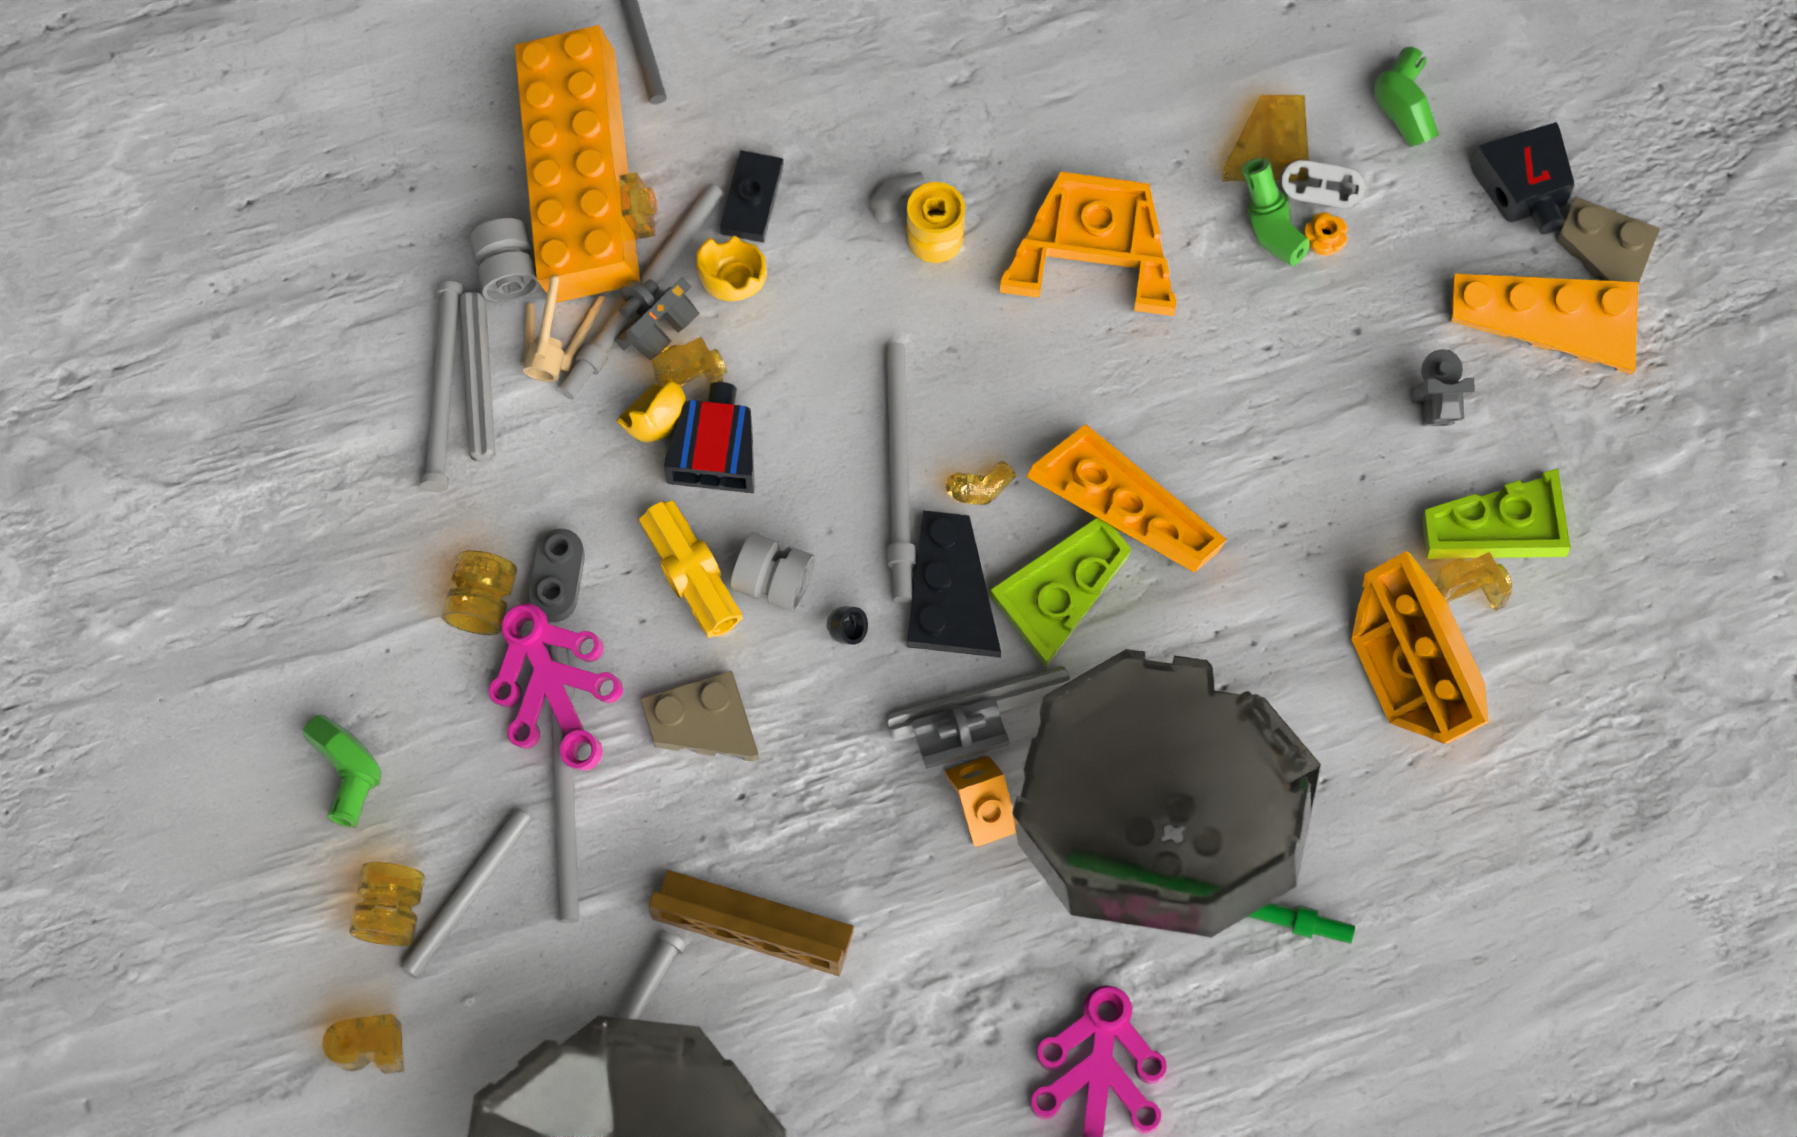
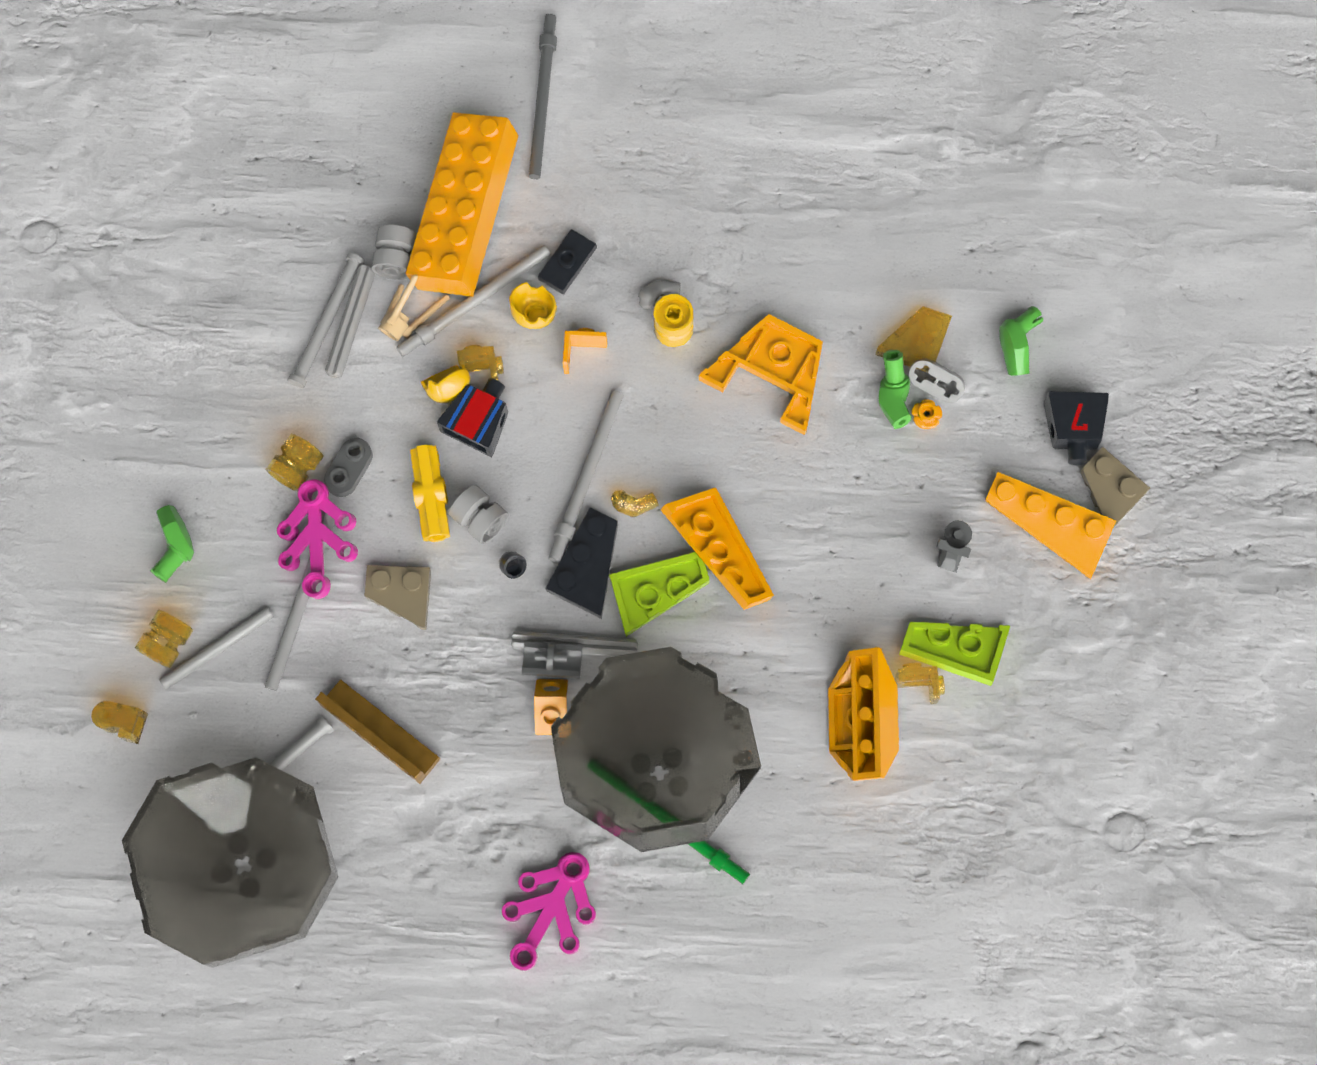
camera: 25 degrees right, 5 degrees up
(638, 205) = (488, 245): clear yellow bracket -> none
(671, 305) = (461, 329): dark grey hips -> none
(819, 288) = (581, 338): none -> light orange bracket

